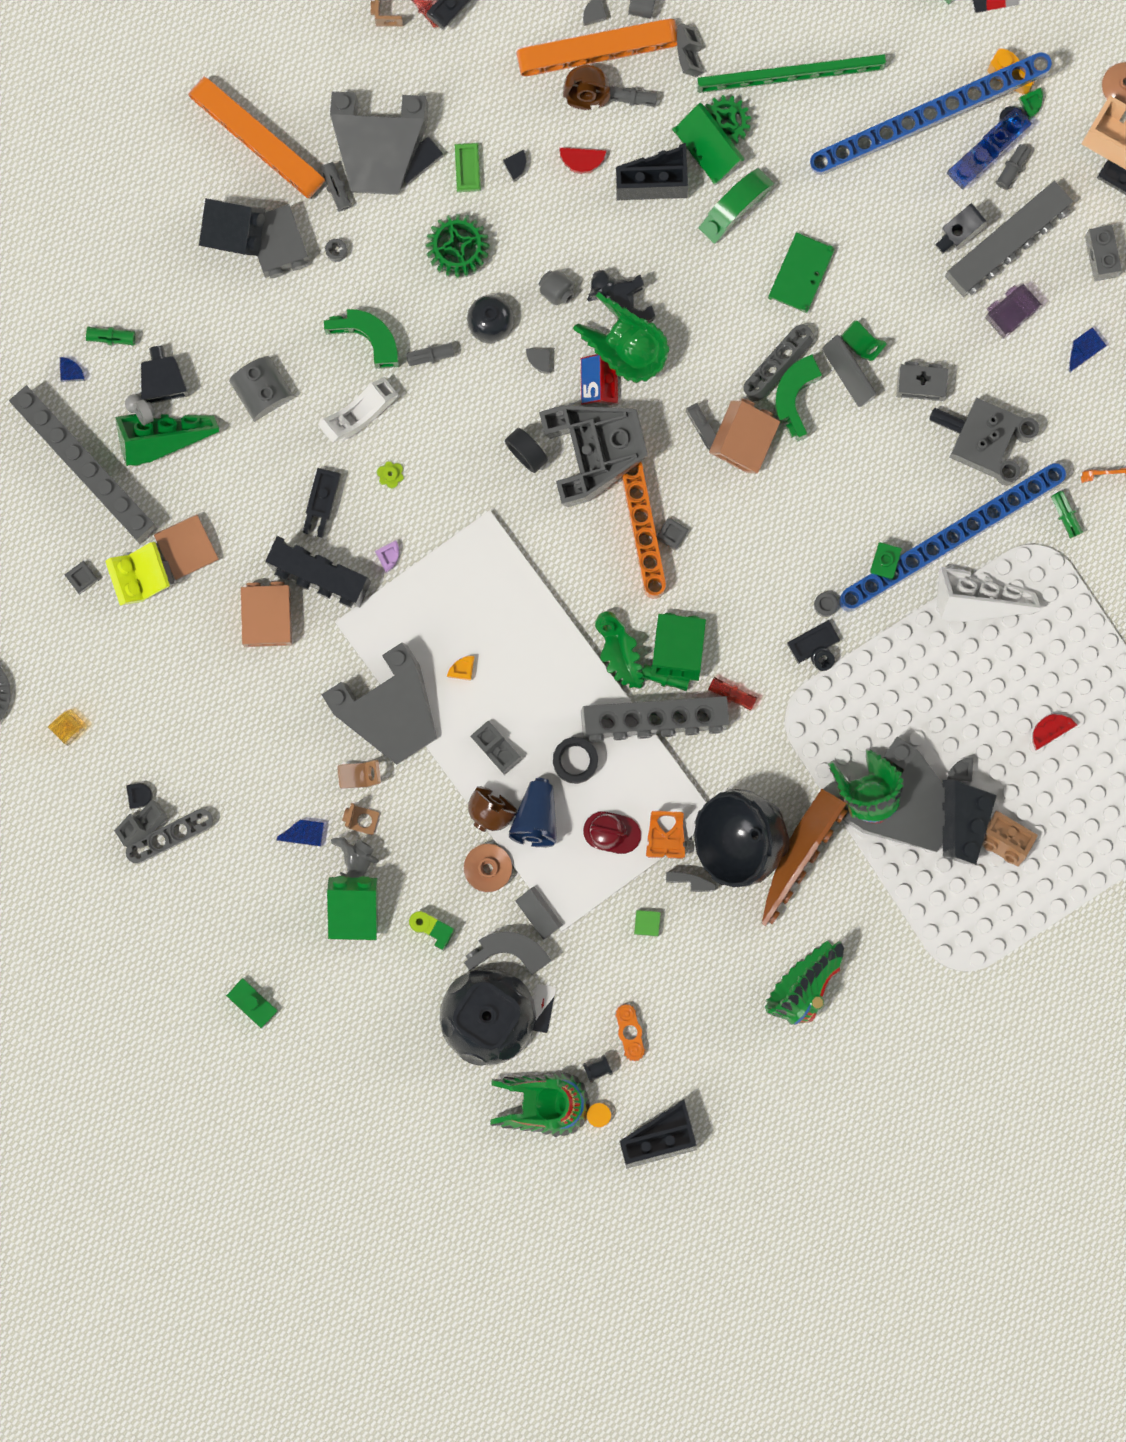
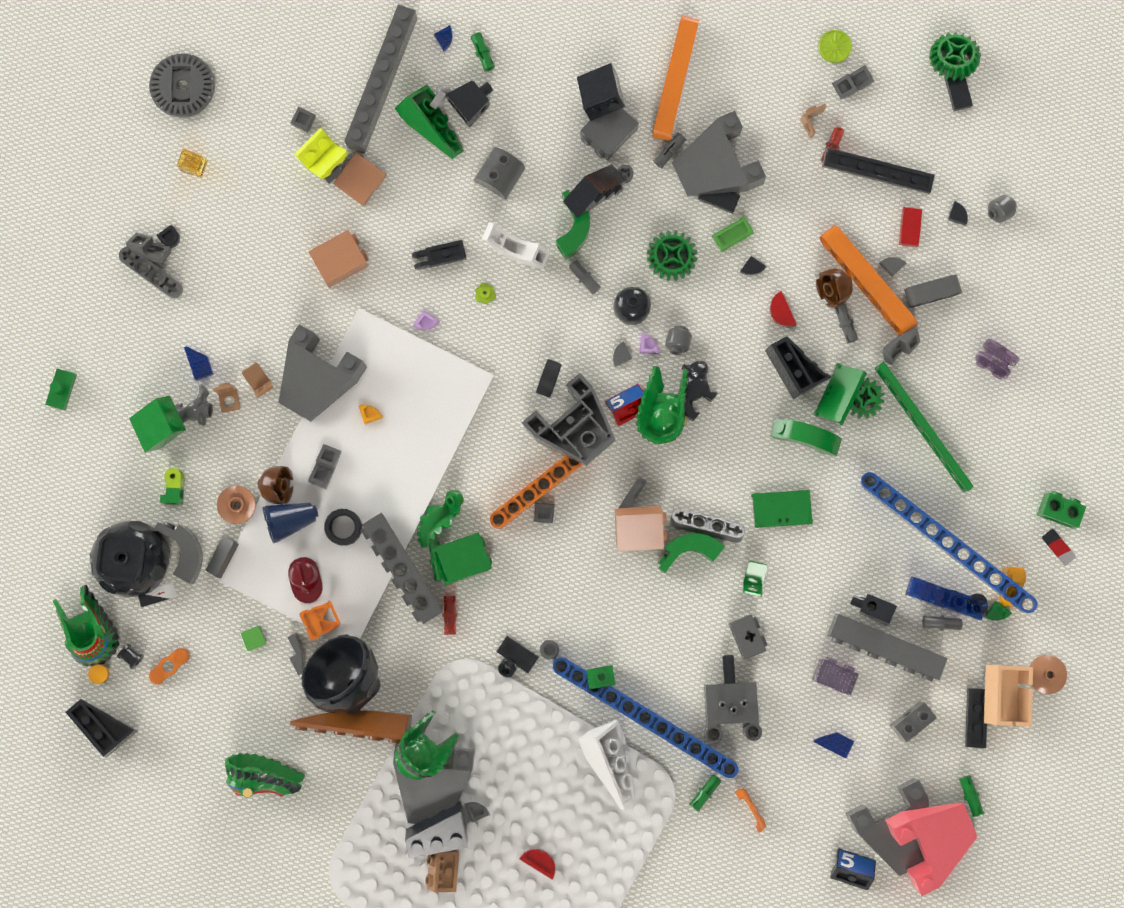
camera: 60 degrees right, 0 degrees up
(317, 573) = (385, 277): black wedge -> none
(342, 290) = (594, 190): none -> black wedge
(543, 324) = (648, 345): none -> lavender tile
(849, 371) = (727, 579): dark grey slope -> none

